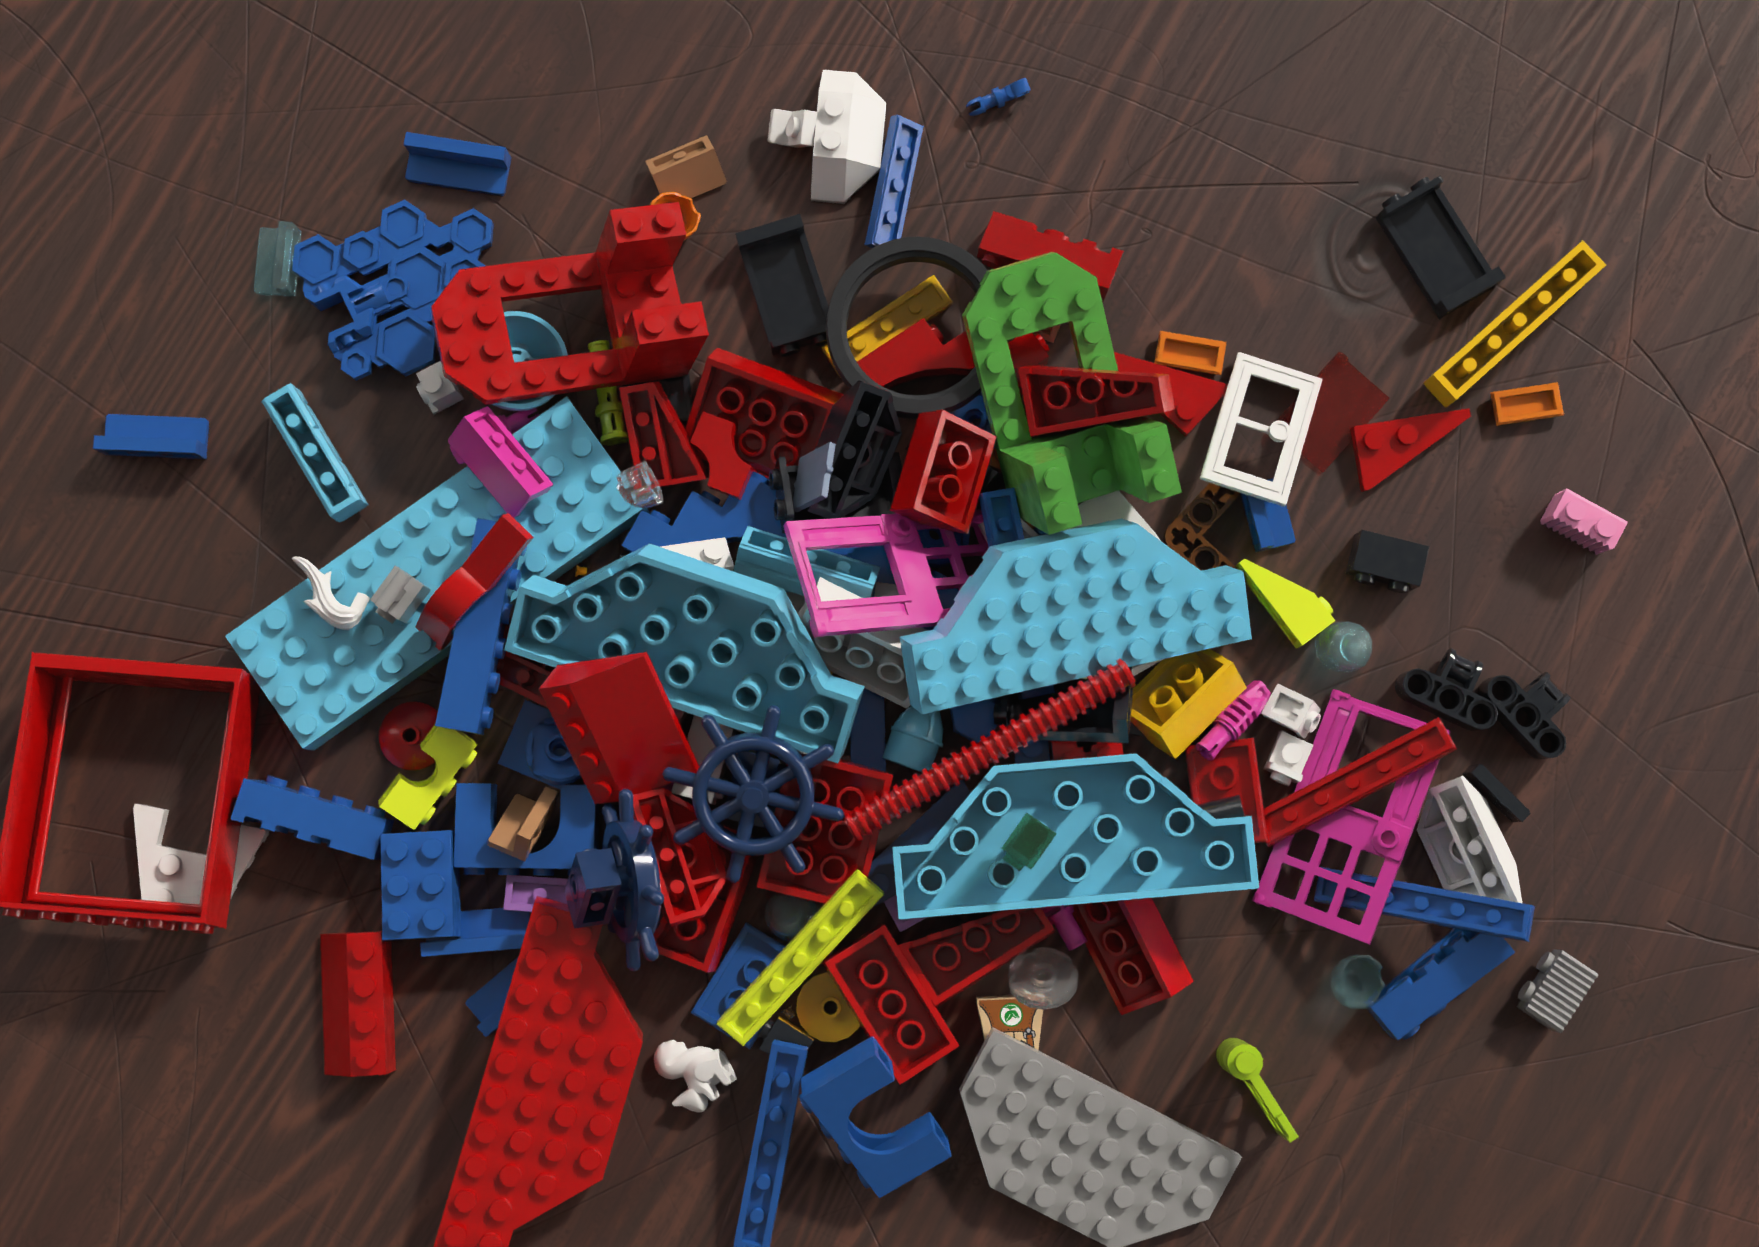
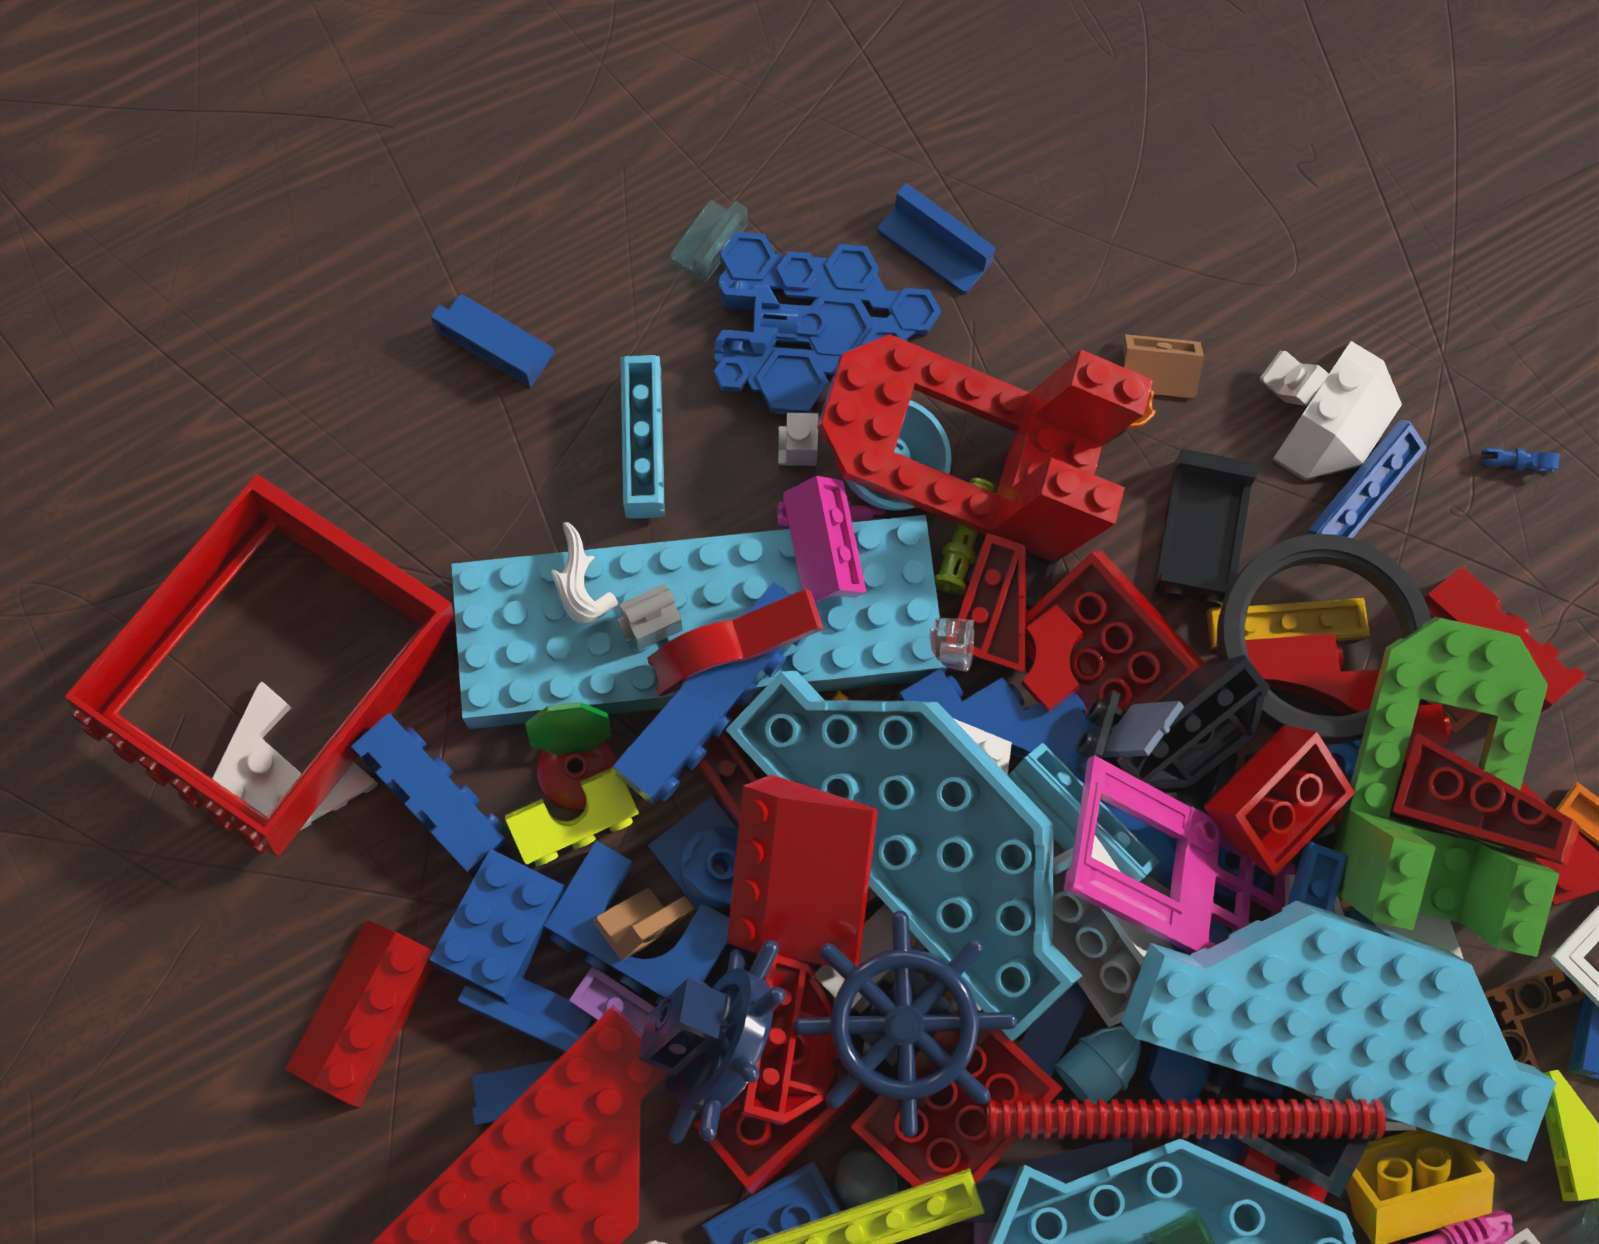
camera: 25 degrees right, 10 degrees down
(387, 712) = (568, 728): none -> green piece

